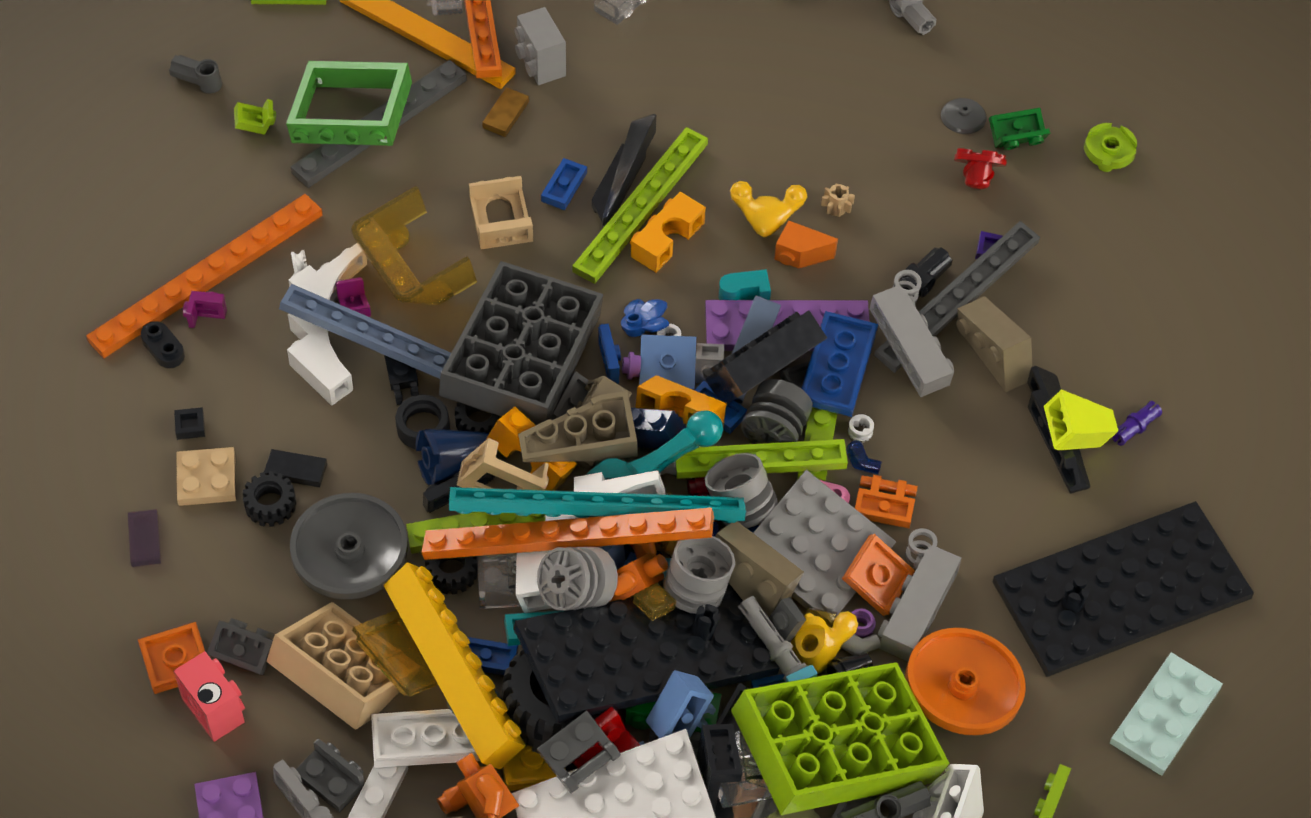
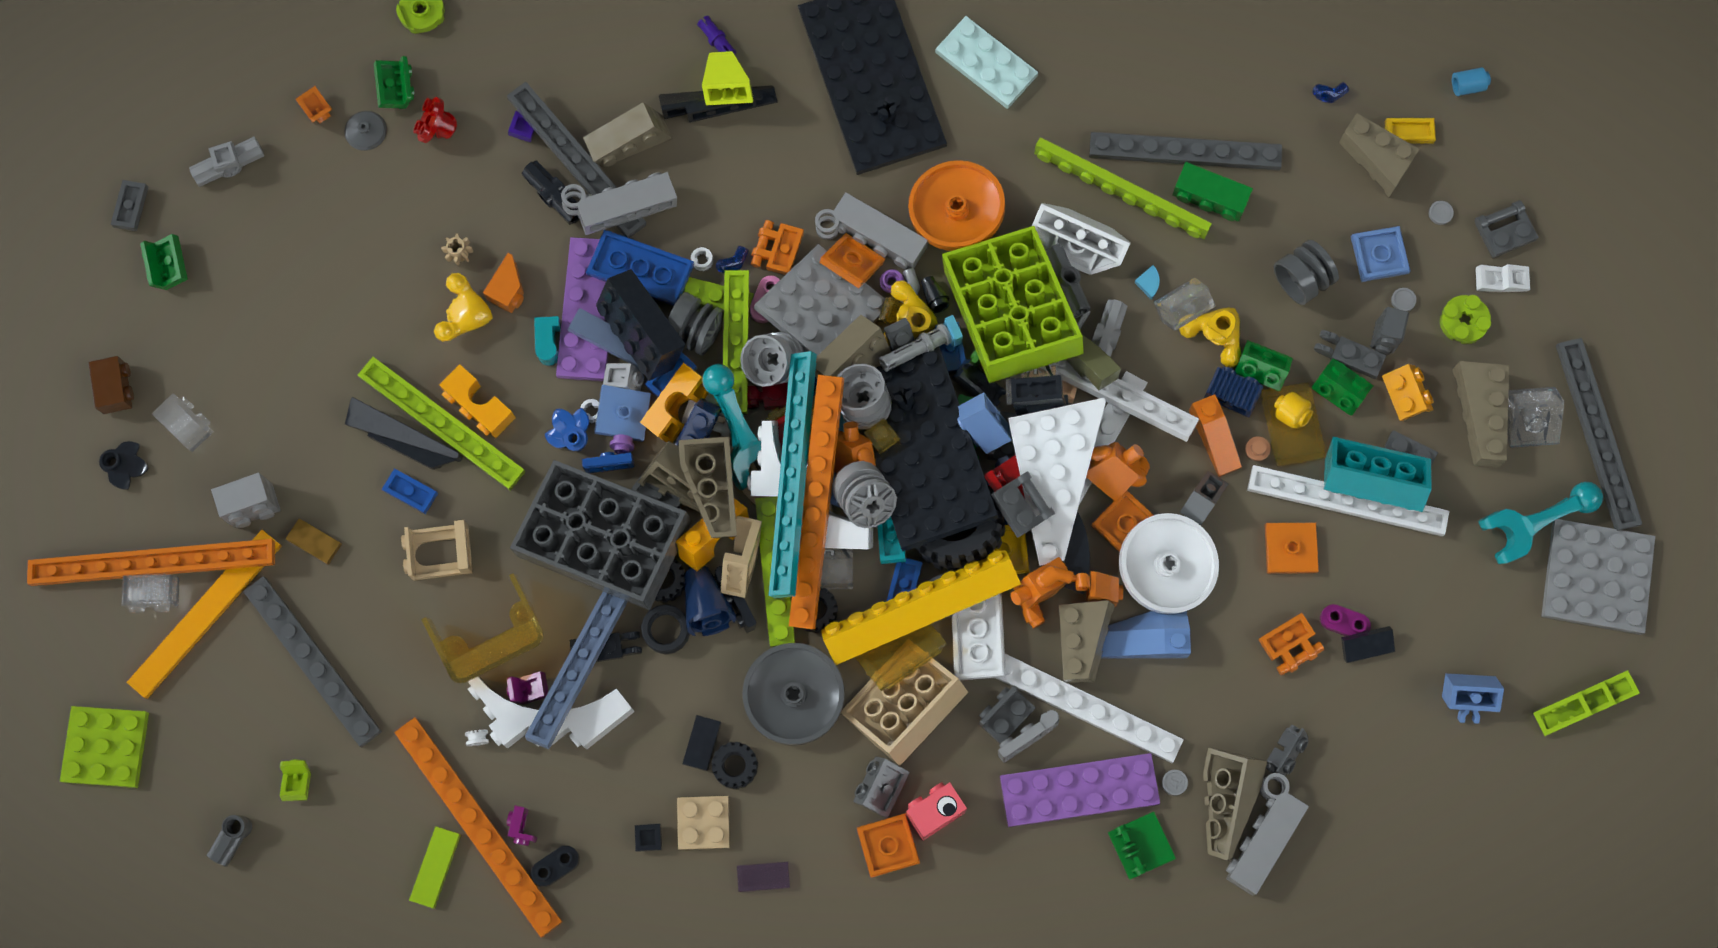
camera: 80 degrees left, 20 degrees up
(164, 241) = (434, 867): none -> lime tile
(350, 75) = (259, 675): bright green window -> none
(980, 66) = (314, 105): none -> orange bracket

